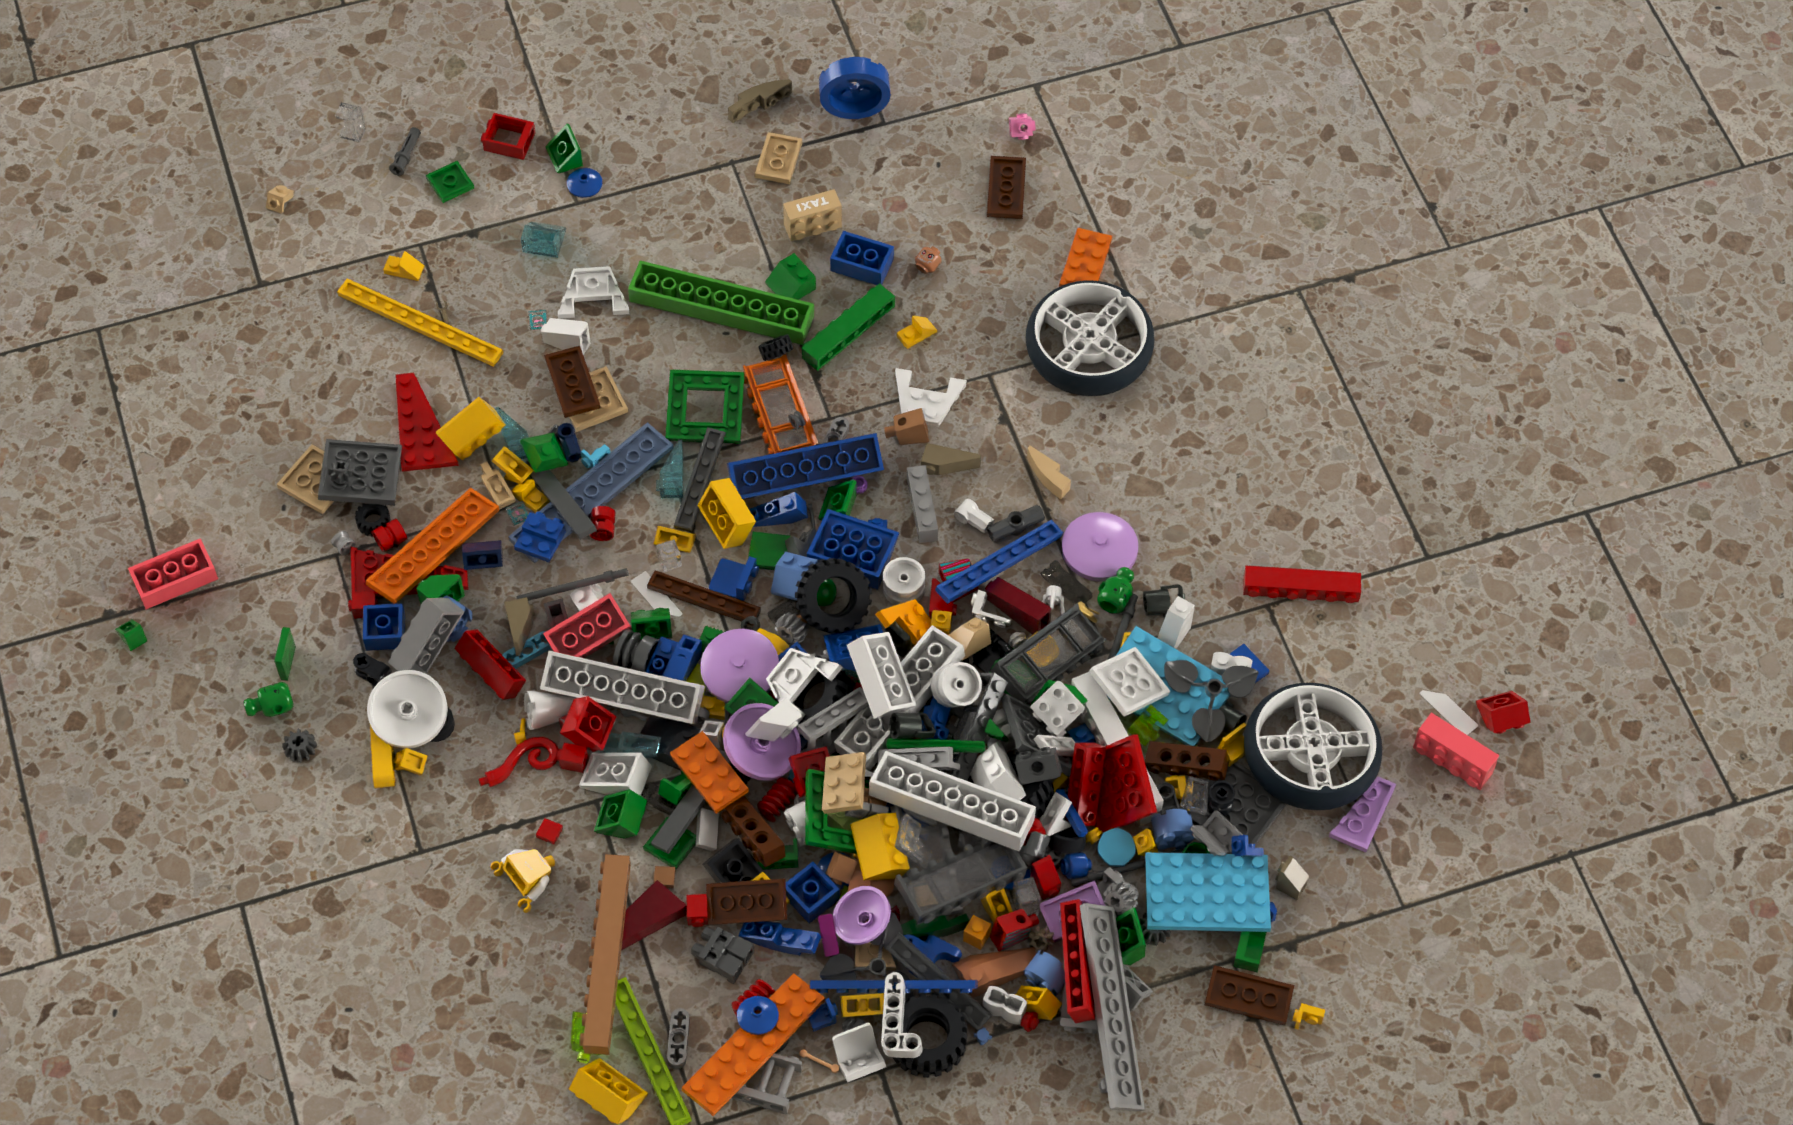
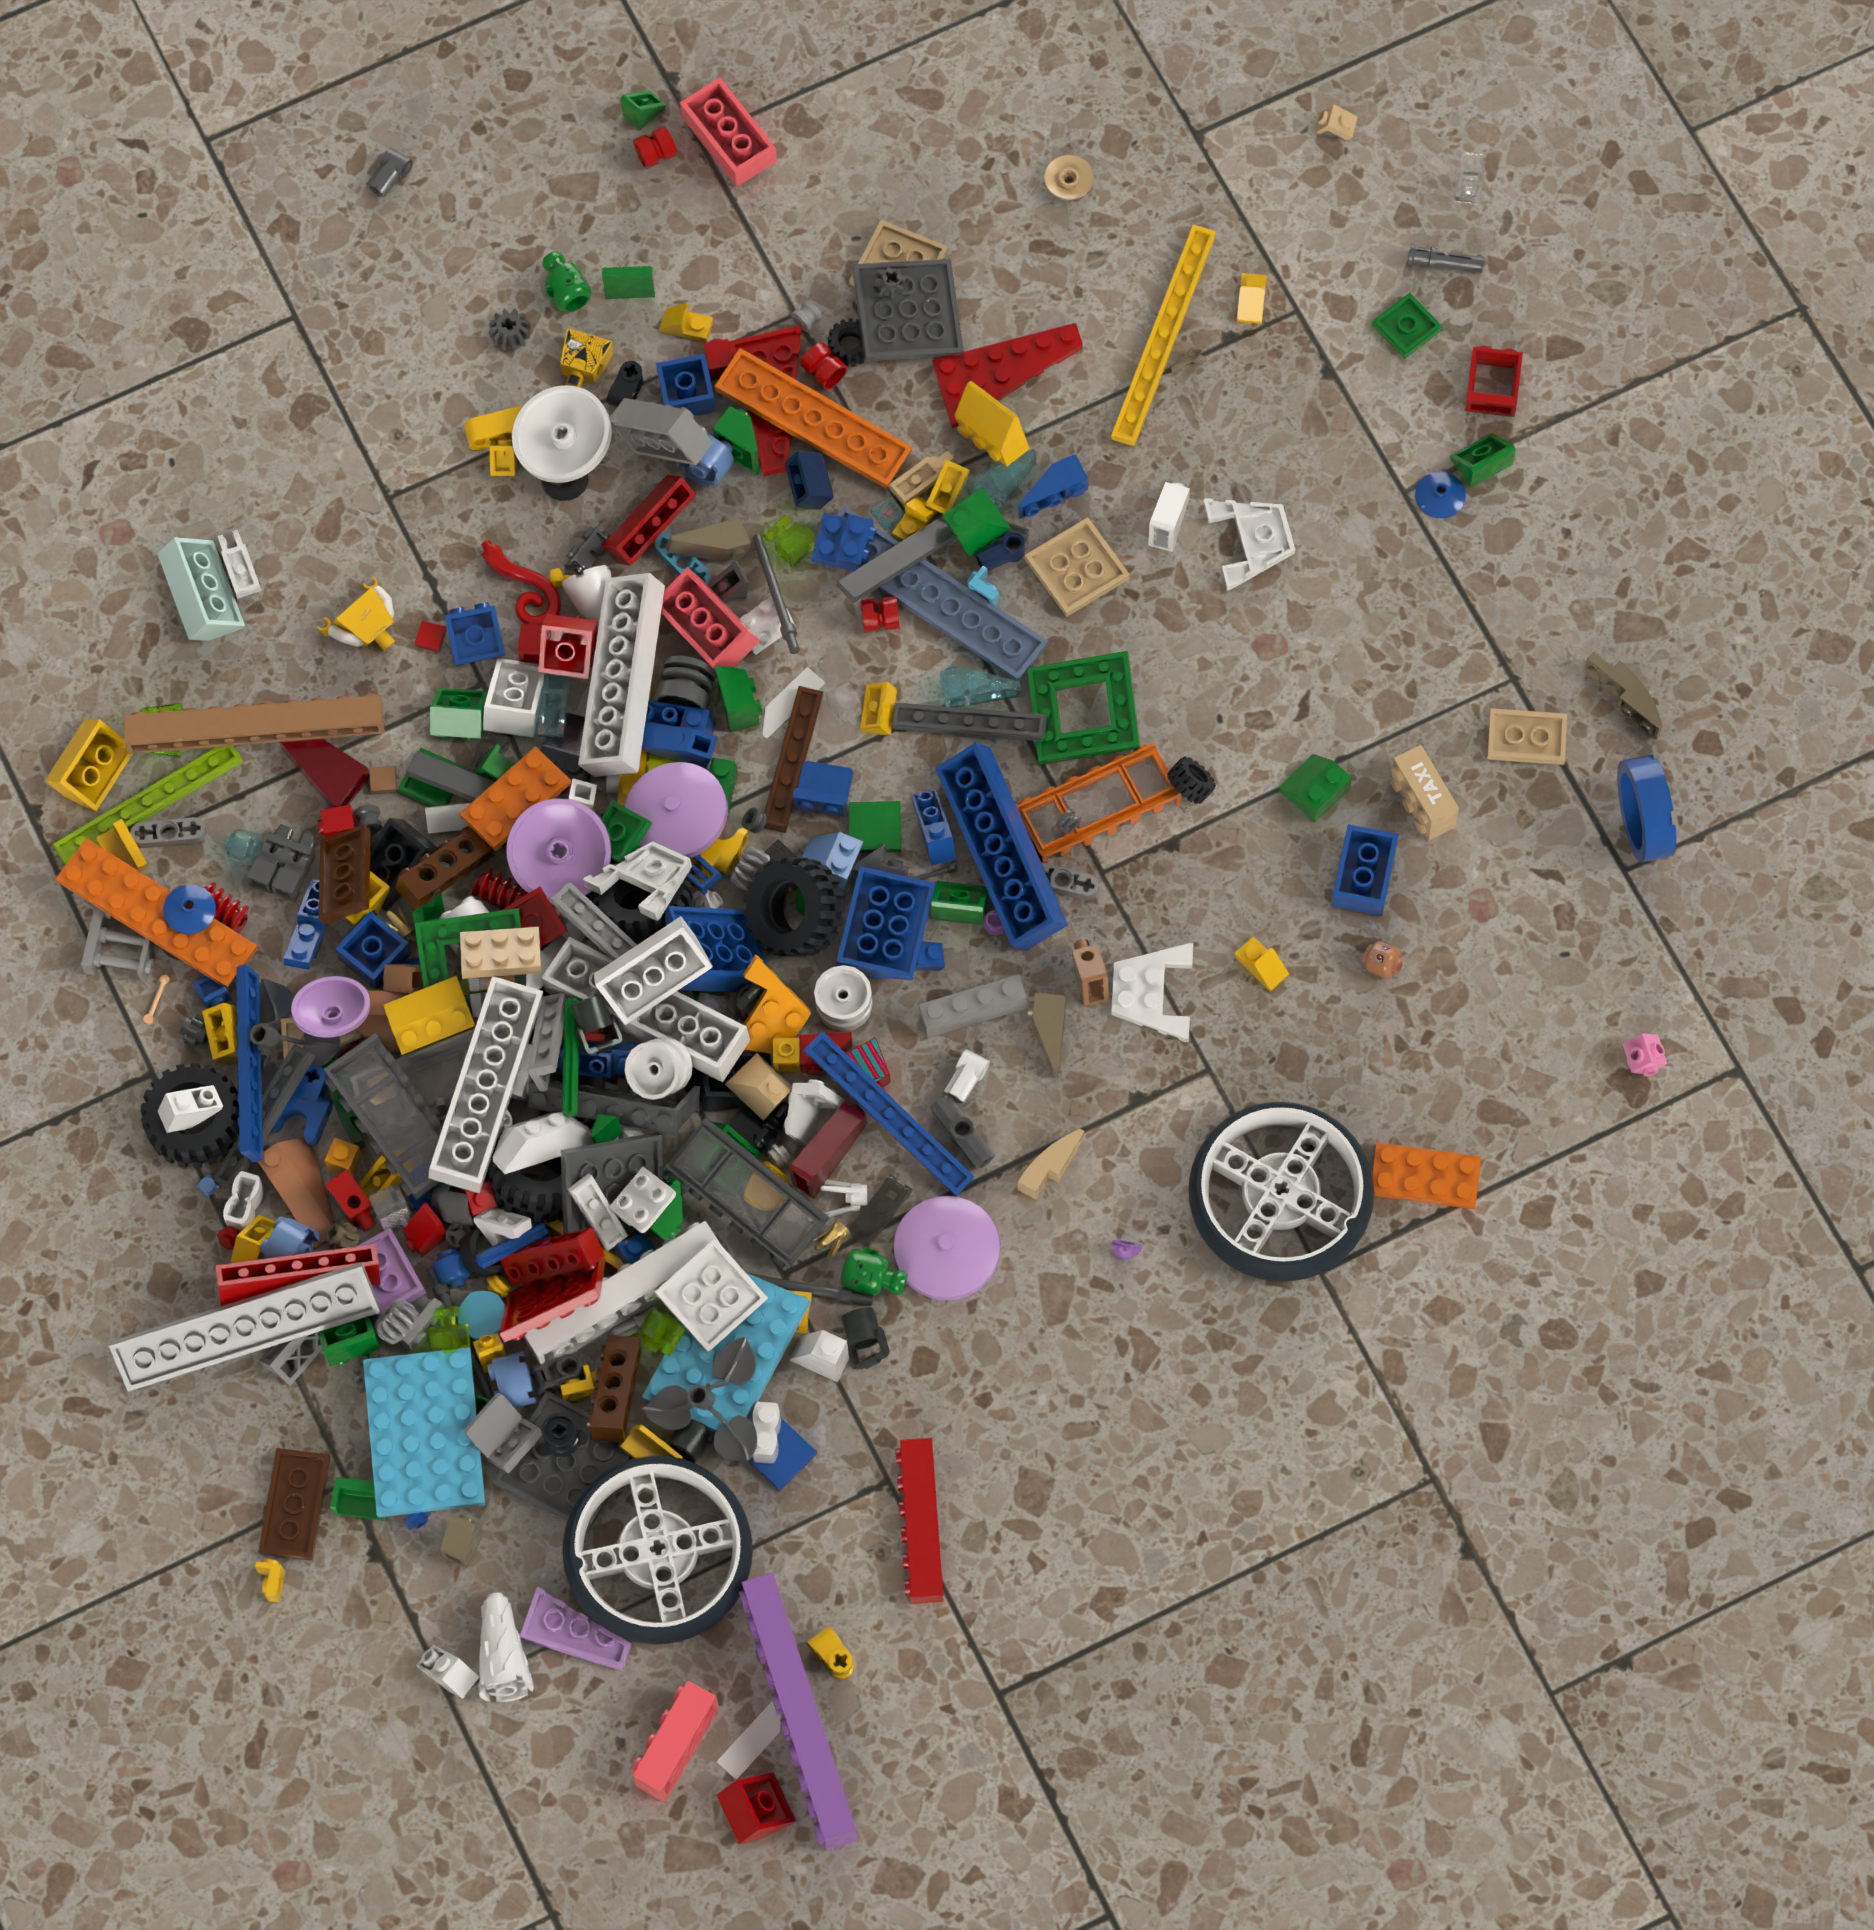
camera: 85 degrees right, 10 degrees up
(131, 815) = (391, 168): none -> dark grey piece
(170, 626) = (656, 146): none -> red wheel
(276, 356) = (1069, 168): none -> tan dish
(325, 626) = (686, 324): none -> yellow slope
(338, 696) = (584, 357): none -> yellow torso
(455, 963) = (239, 567): none -> white hinge
(471, 994) = (200, 588): none -> light aqua slope
(496, 710) = (580, 555): none -> dark grey hinge
(522, 402) = (1059, 482): none -> blue slope
(529, 573) = (792, 543): none -> clear neon green brick
(537, 319) = (1197, 478): clear tile -> none
(542, 239) = (1329, 456): clear light blue slope -> none
(556, 796) = (474, 634): none -> blue plate
(572, 381) = (1091, 534): reddish brown plate -> none
(683, 1068) = (122, 845): none -> yellow panel
(697, 886) = (369, 816): none -> dark grey wheel
(703, 980) = (243, 846): none -> clear light blue head
(720, 302) = (1256, 700): bright green brick -> none
(726, 513) = (911, 760): yellow brick -> none
(776, 722) = (572, 855): white slope -> none
(791, 871) = (403, 927): none -> pearl gold piece
(828, 935) = (314, 973): magenta slope -> none
(848, 326) = (1250, 870): green brick -> none
(857, 1052) = (161, 1040): white bracket -> none
(897, 1015) = (233, 1061): white beam -> none
(908, 842) = (433, 1042): clear plate -> none
(930, 1025) = (188, 1107): none -> white slope
(1006, 187) = (1535, 1050): reddish brown plate -> none
(1030, 773) = (545, 1182): dark grey brick -> none
(1116, 437) = (1125, 1249): none -> medium lavender animal
(1131, 868) = (449, 1335): none -> clear neon green brick
(1195, 796) = (553, 1400): clear slope -> none
(1241, 847) = (486, 1473): blue bracket -> none
(1384, 859) = (501, 1657): none -> white cone
(1388, 901) = (447, 1671): none -> white slope
(1394, 650) = (829, 1650): none -> yellow piece
(1440, 670) = (801, 1718): none -> medium lavender brick

